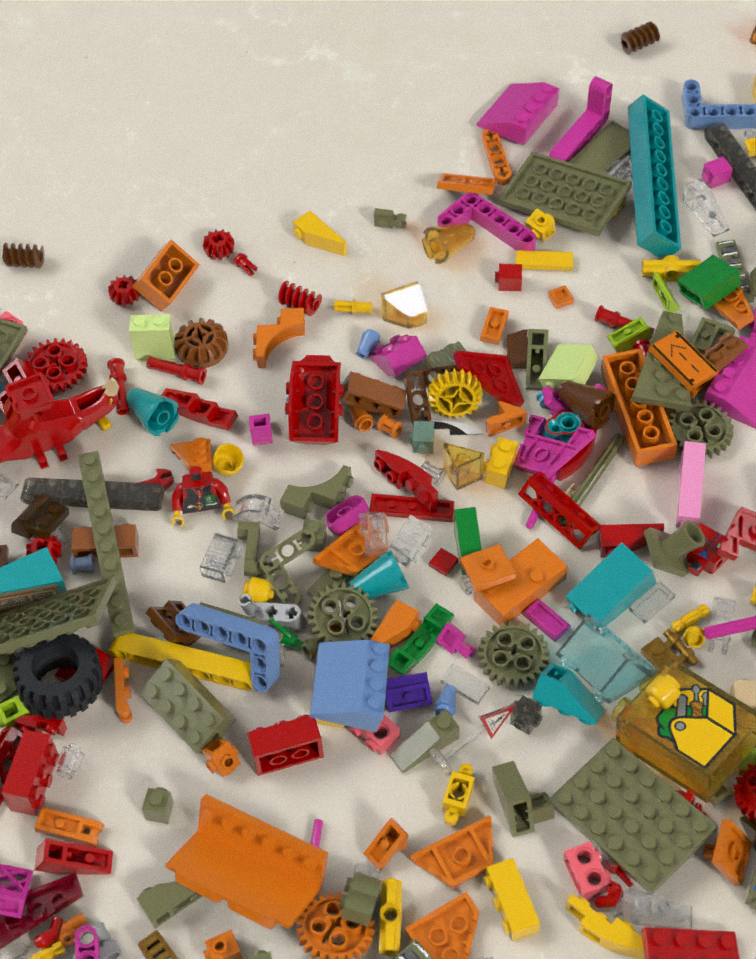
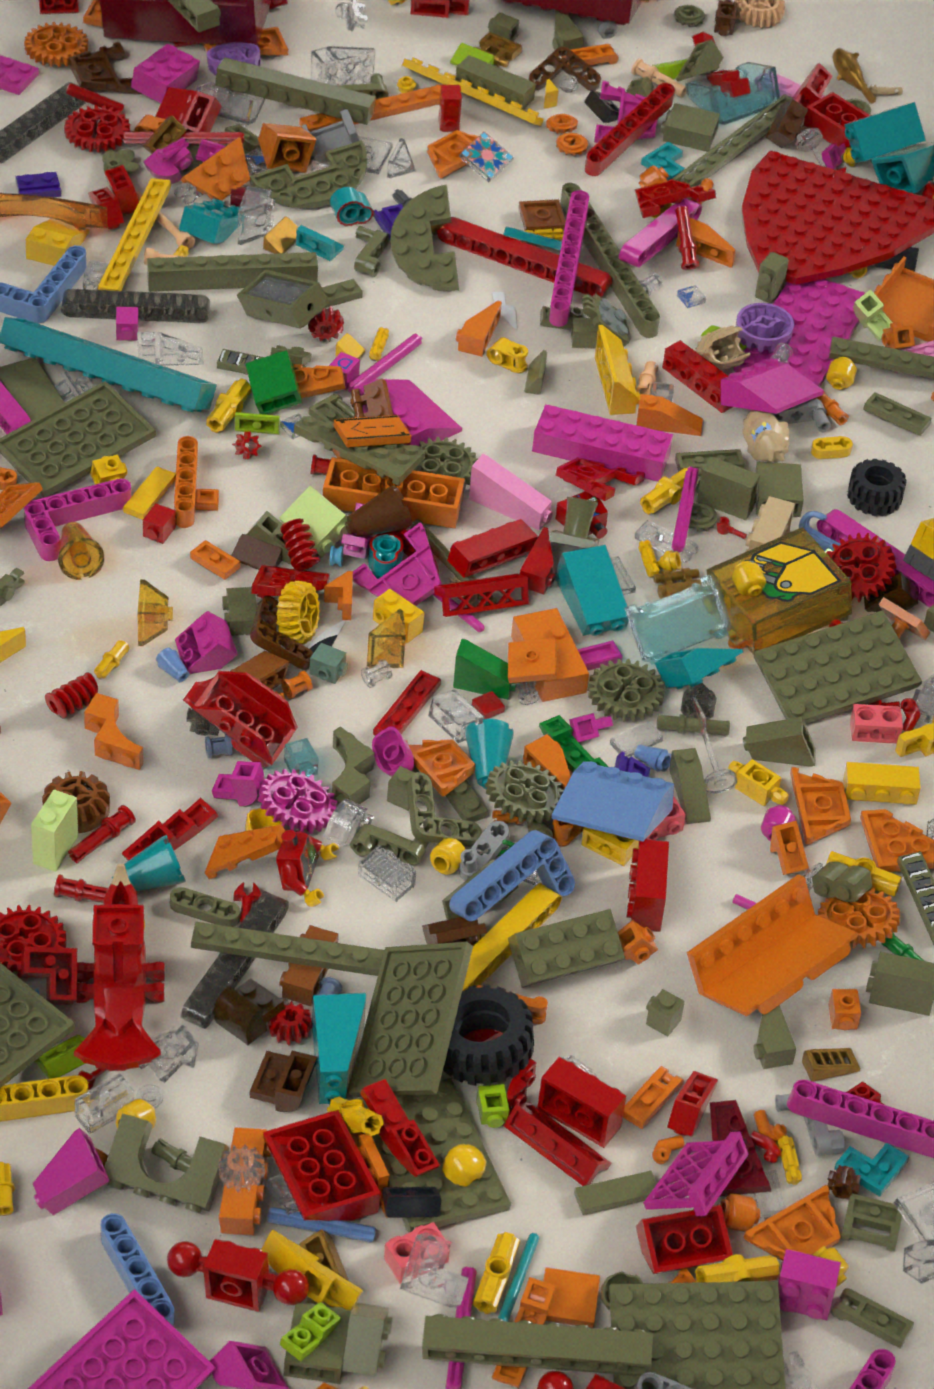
camera: 75 degrees left, 10 degrees down
(19, 854) = (664, 1147): none -> orange arm
(134, 450) = (188, 896): none -> olive beam
(268, 454) = (307, 811): none -> dark pink gear
(311, 458) = (301, 757): none -> clear light blue brick
(375, 531) = (435, 726): clear brick -> none
(407, 474) = (376, 687): red slope -> none
(416, 825) = (775, 816): none -> dark pink head
(506, 730) = (682, 723): none -> olive pin
(530, 366) = (298, 545): none -> red piece
(567, 273) = (186, 481): none -> orange beam
(613, 319) = (268, 470): red pin -> none
(613, 495) = (492, 548): none -> red brick
(626, 336) = (297, 466): lime slope -> none
(635, 297) = (246, 451): none -> red gear
(687, 316) = (288, 425): none -> clear tile

